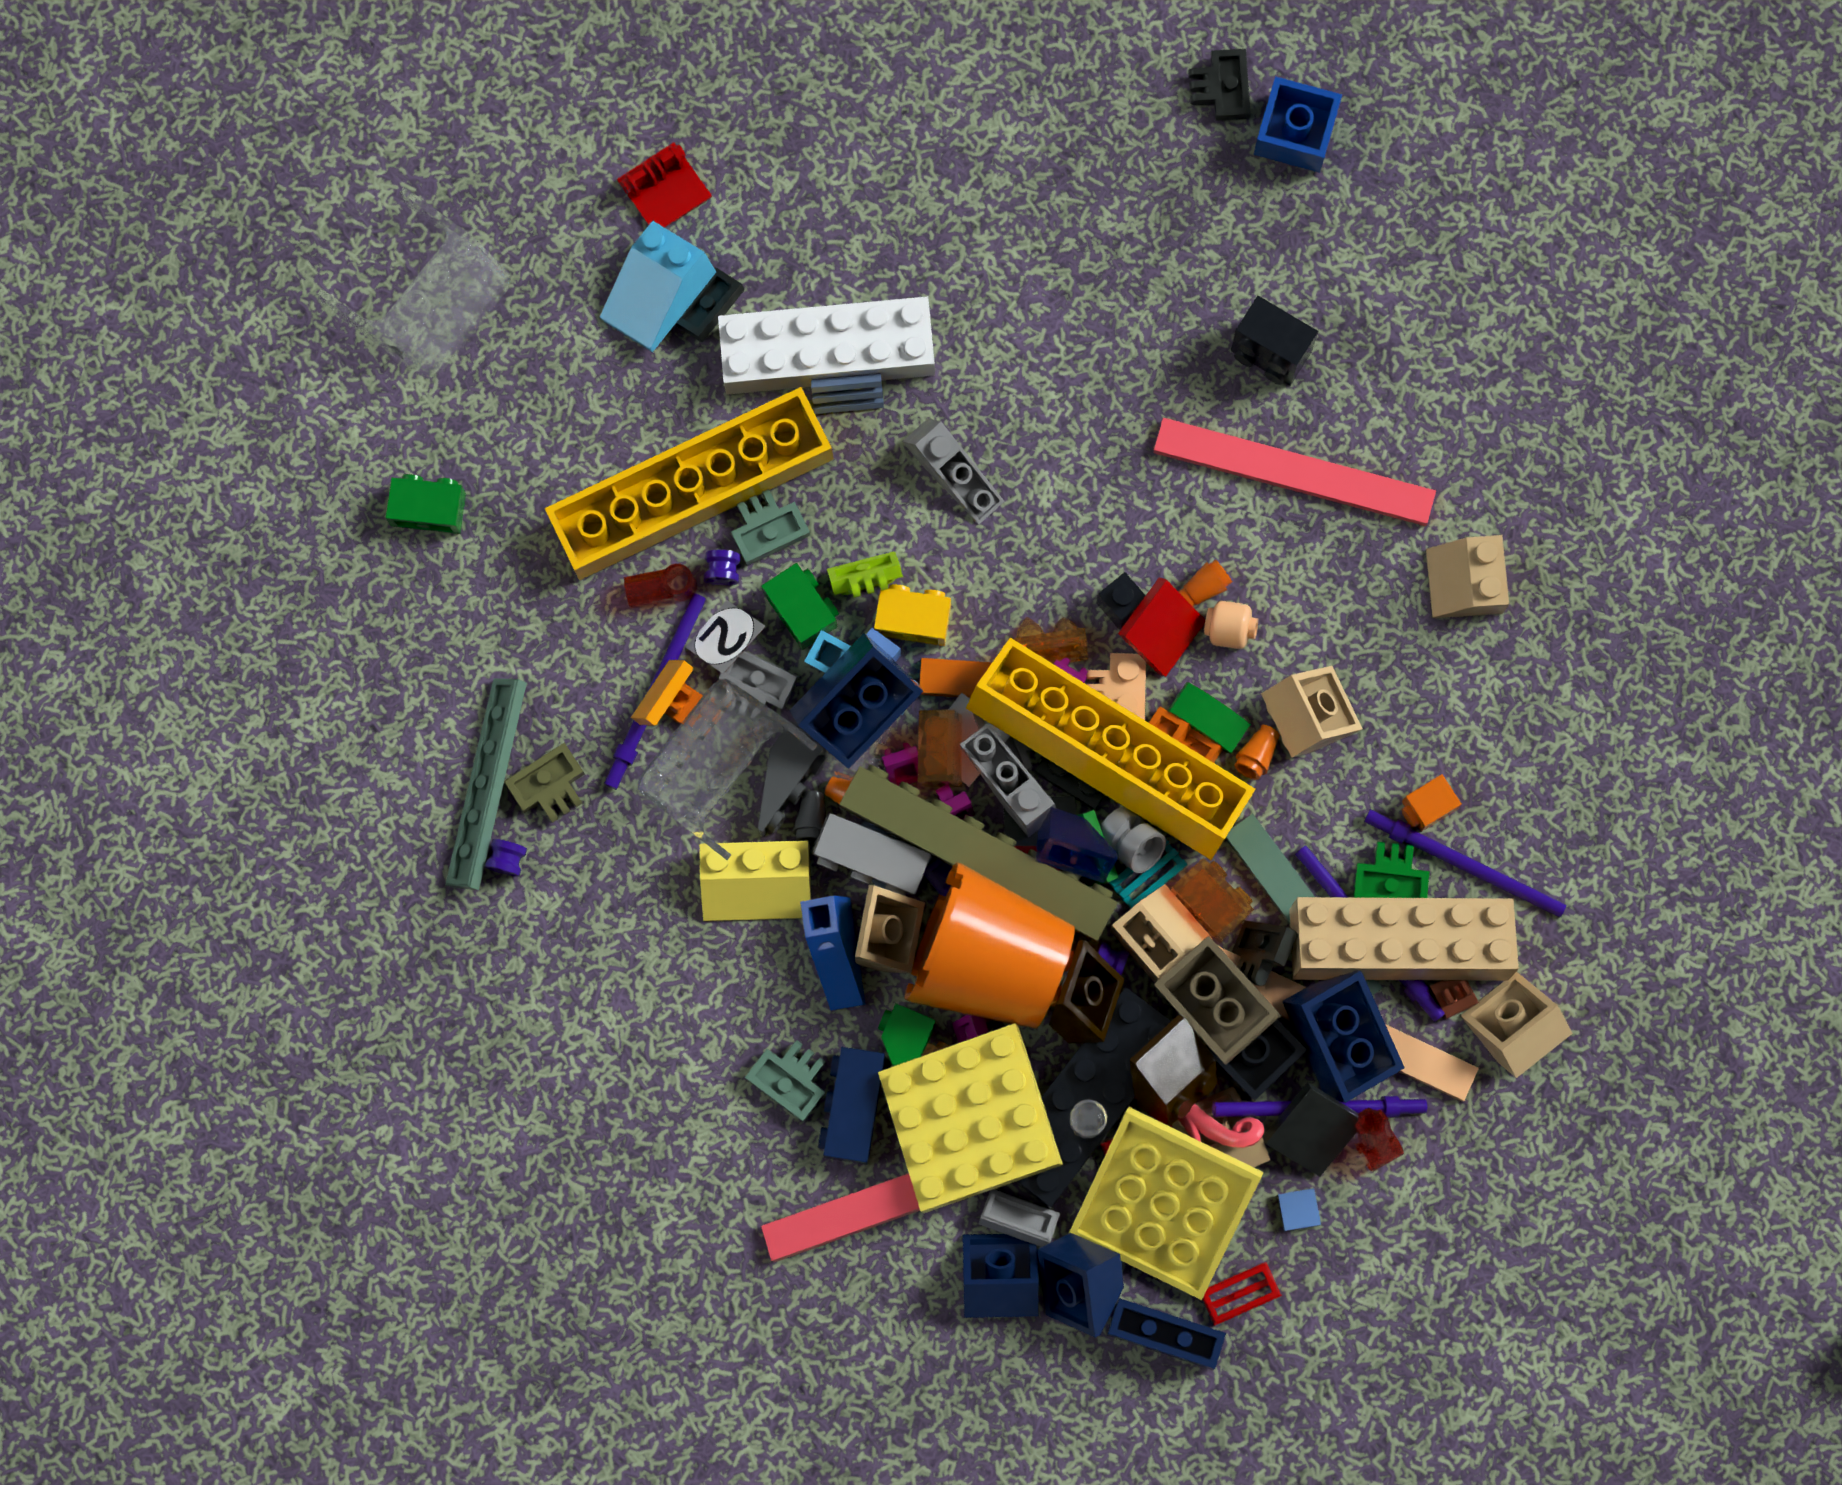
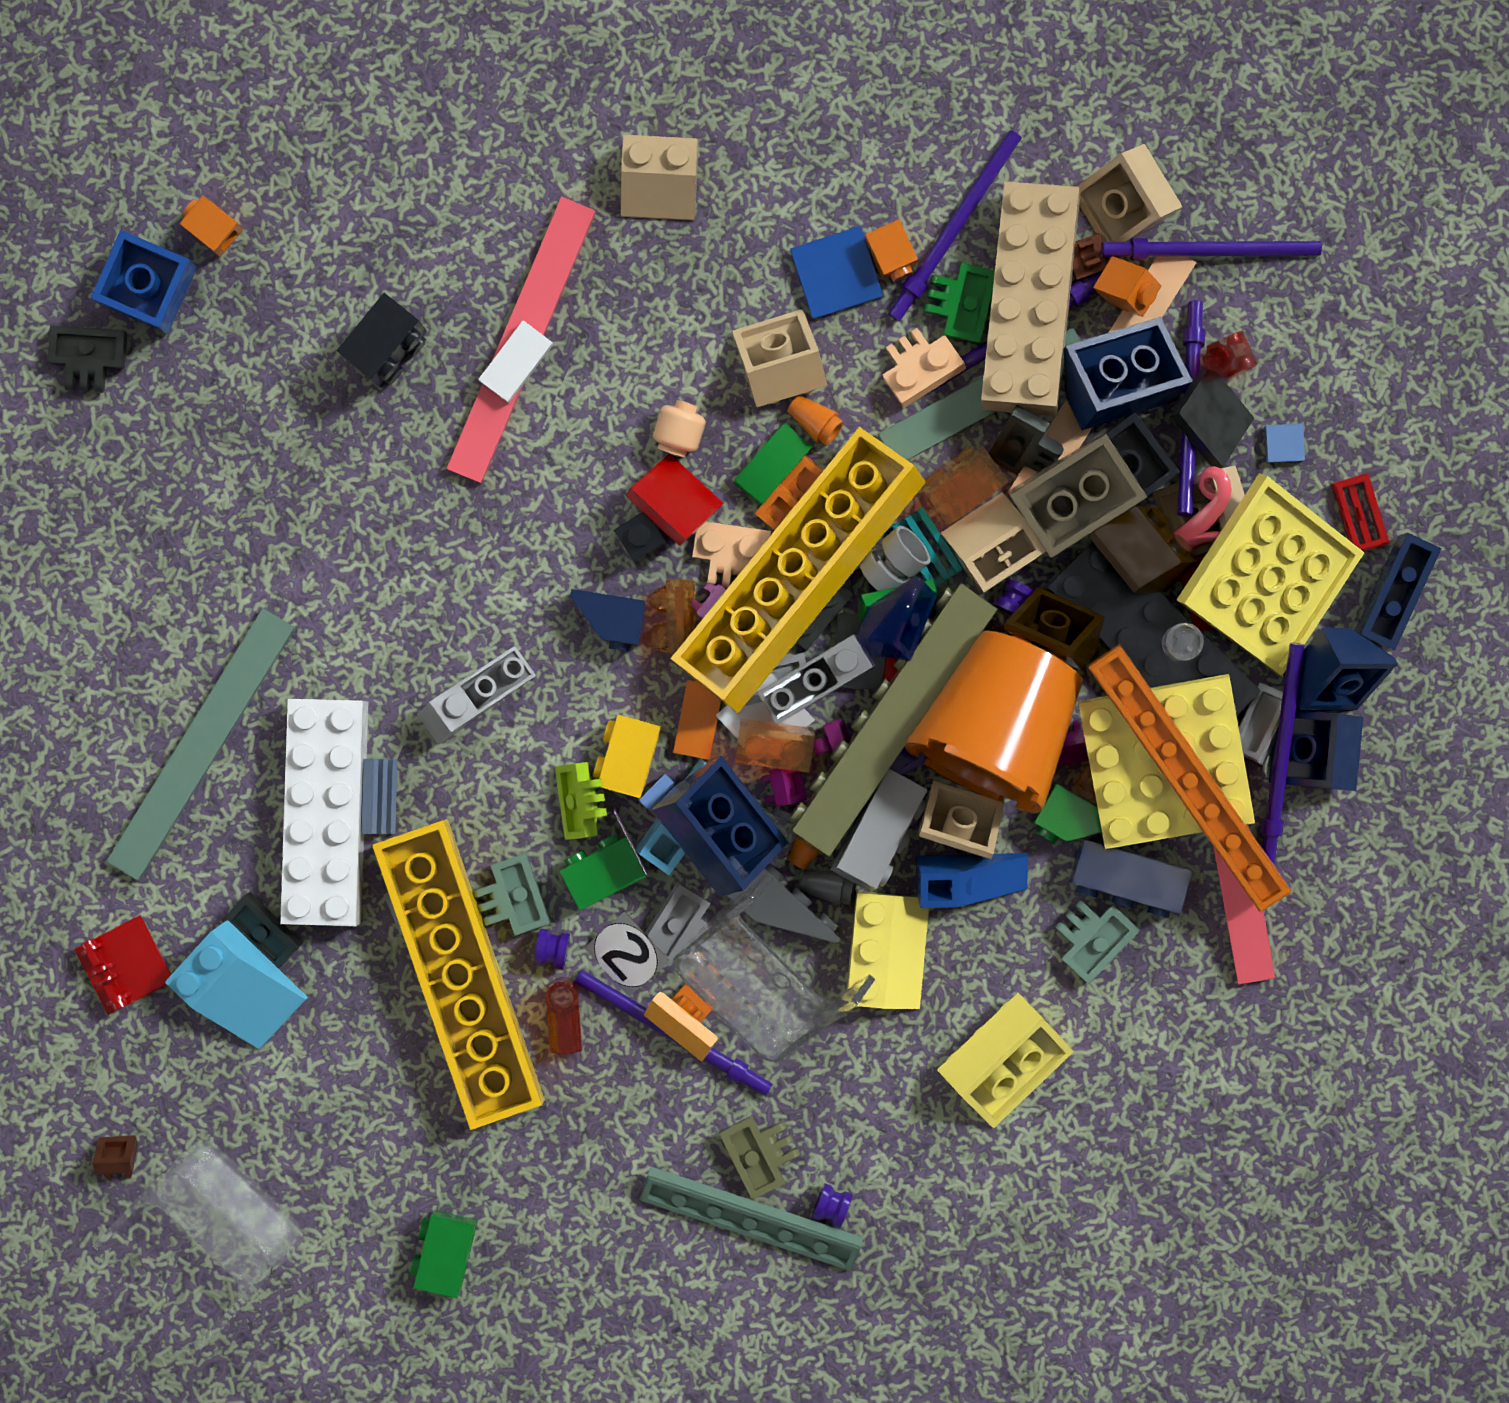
camera: 85 degrees left, 10 degrees up
(487, 200) = (115, 1155): none -> copper tile
(661, 1006) = (1005, 1060): none -> light yellow slope
(832, 623) = (630, 841): none -> sticker
(877, 230) = (201, 744): none -> sand green tile
(922, 1240) = (1272, 824): none -> dark purple bar
(955, 1138) = (1189, 778): none -> orange tile
(1042, 585) = (613, 617): none -> dark blue slope
(1206, 583) = (631, 448): orange cone -> none
(1272, 466) = (515, 361): none -> white tile
(1322, 846) = (921, 367): none -> light nougat hinge
(1359, 178) = (210, 225): none -> orange brick
(1401, 756) = (836, 273): none -> blue tile
(1429, 1032) = (1127, 286): none -> orange brick
(1468, 1042) = (1140, 249): none -> dark purple bar

